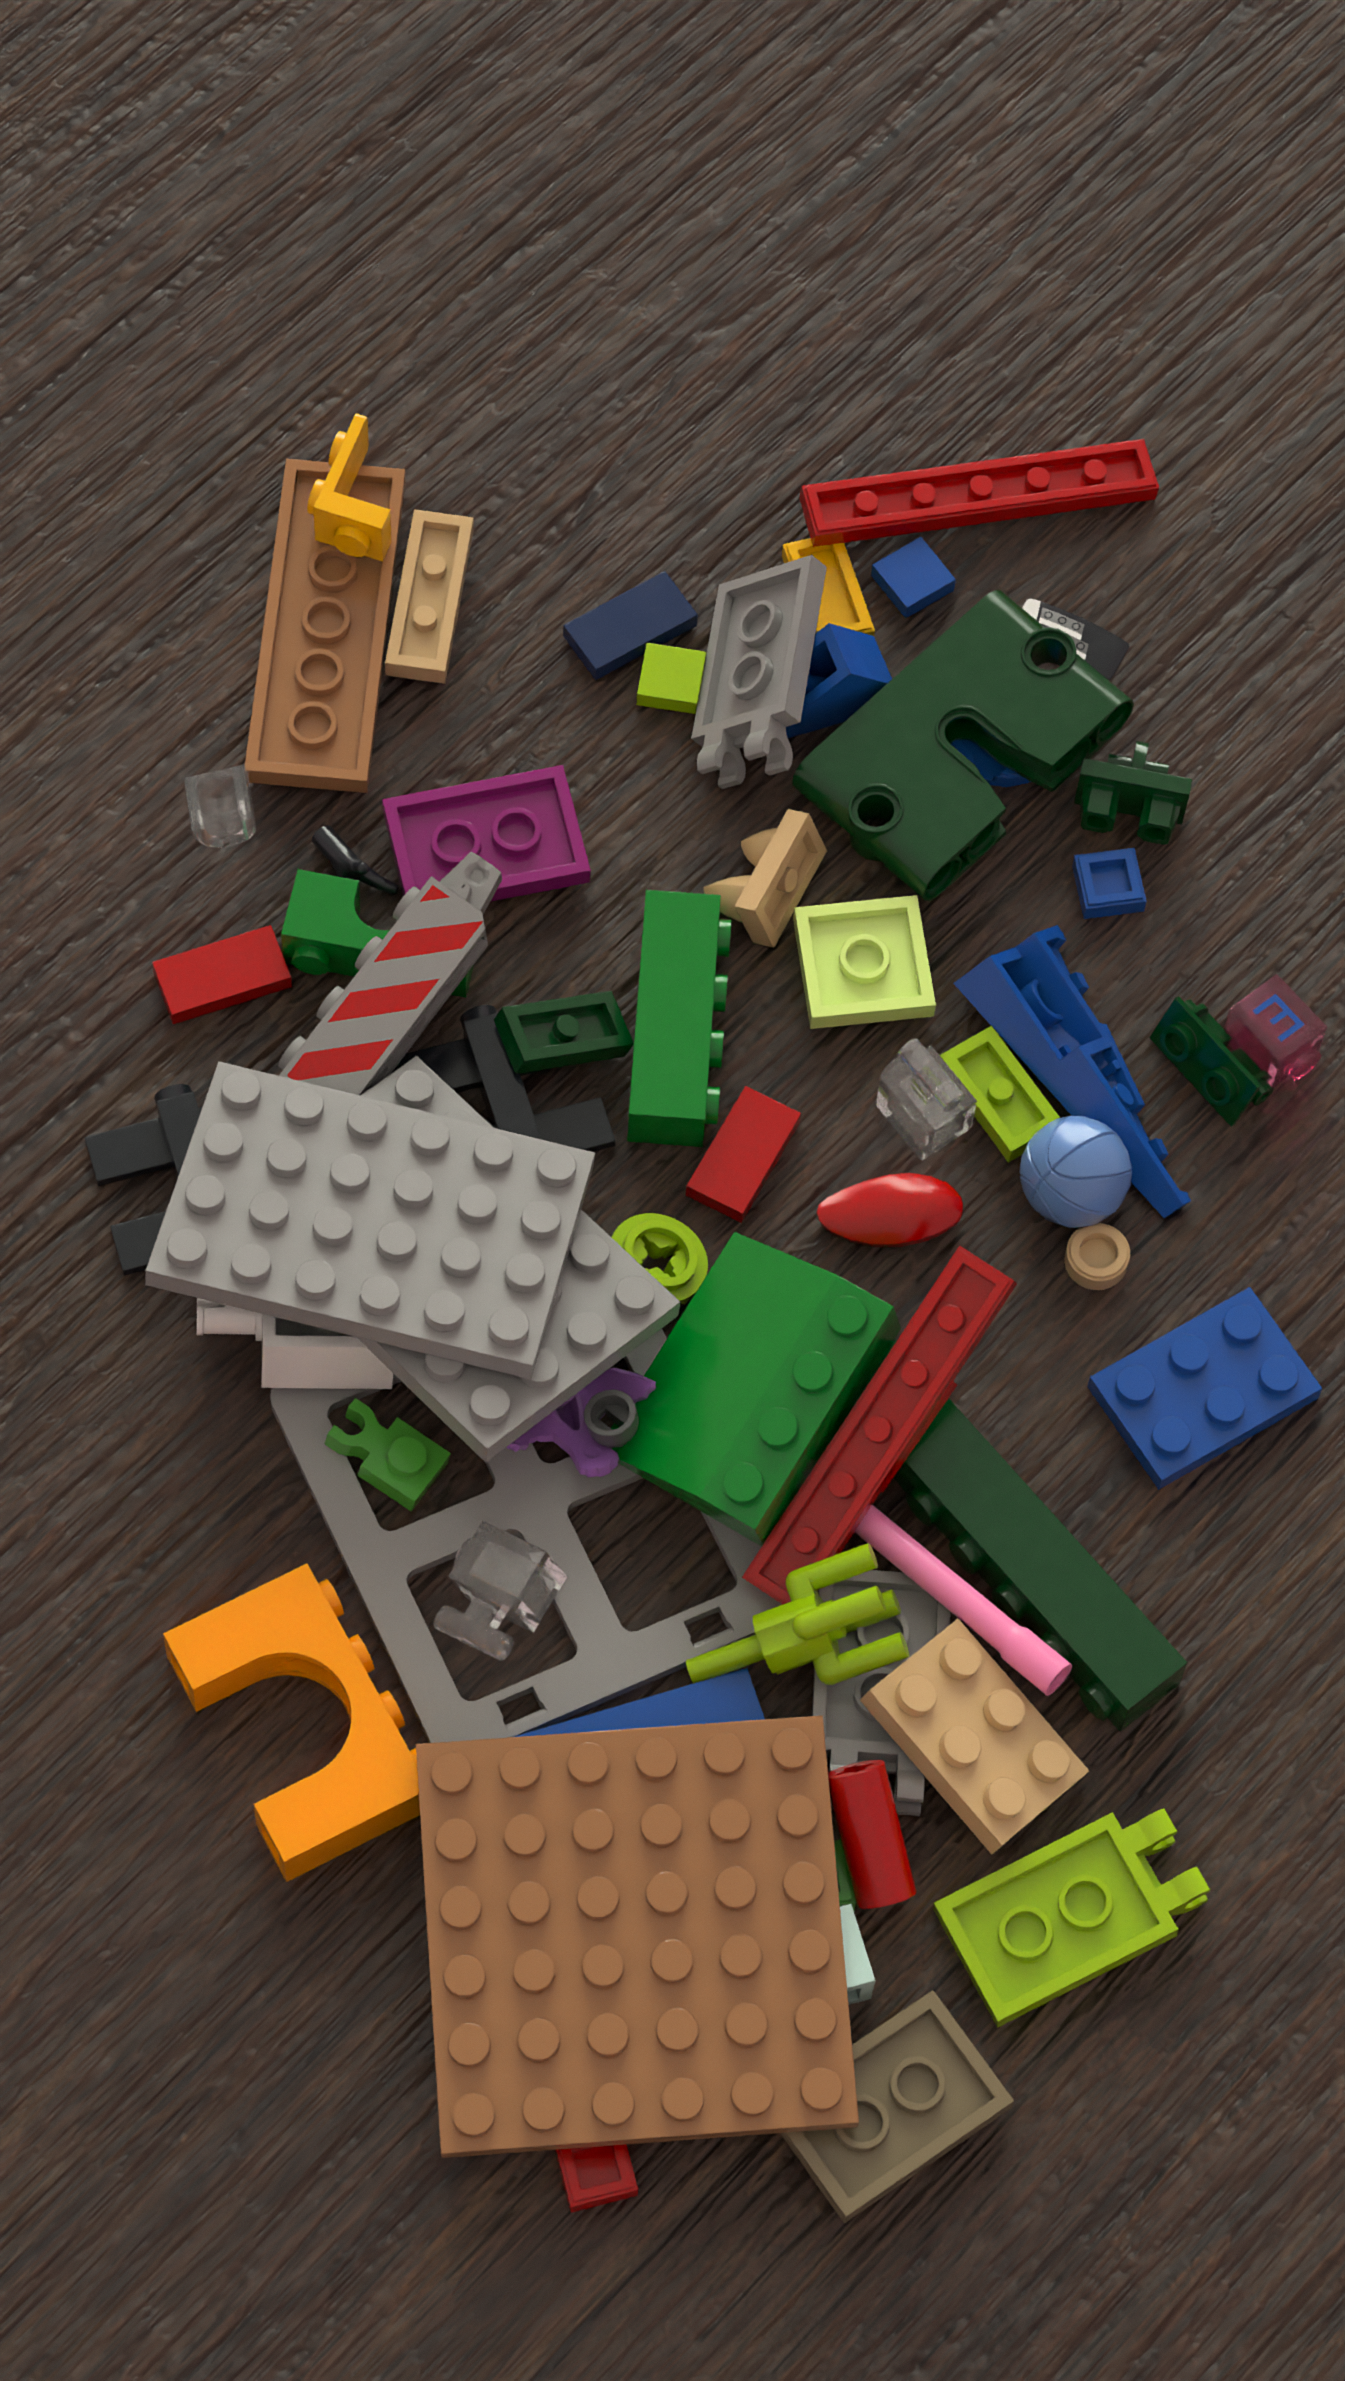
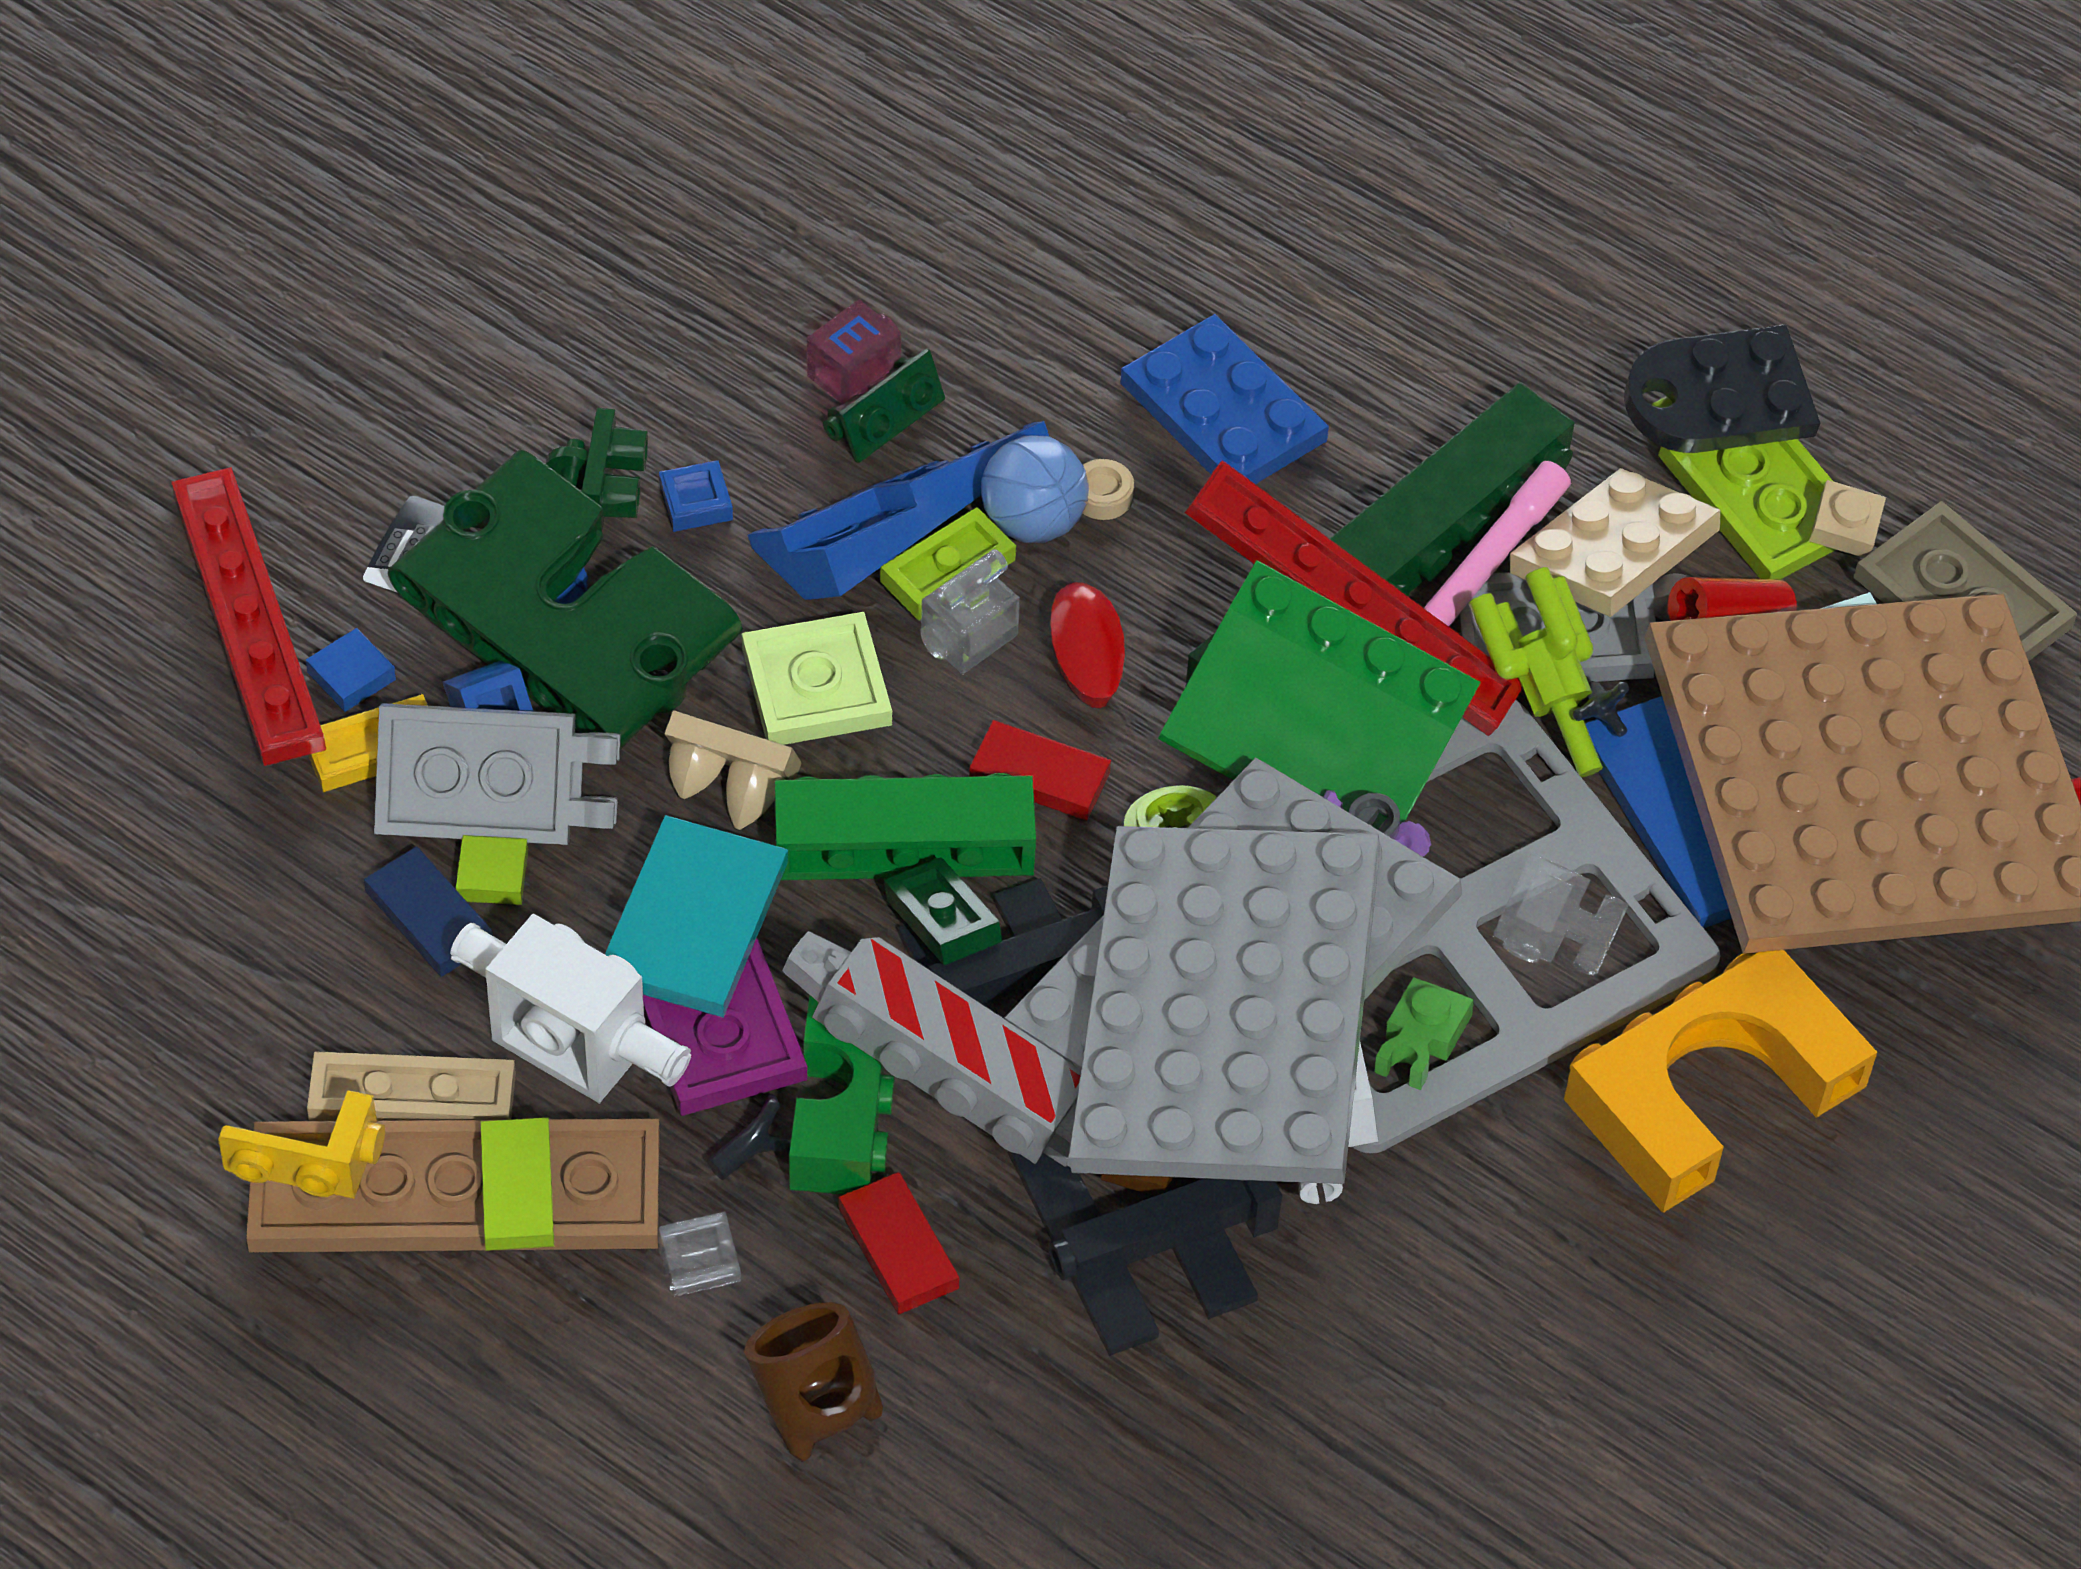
camera: 95 degrees left, 10 degrees down
(73, 870) = (813, 1374): none -> reddish brown piece
(304, 657) = (517, 1184): none -> lime tile
(481, 703) = (568, 1007): none -> white brick
(578, 819) = (697, 913): none -> teal tile
(763, 1684) = (1602, 705): none -> black bar
(993, 1991) = (1847, 519): none -> tan plate
(1169, 1882) = (1722, 391): none -> black plate

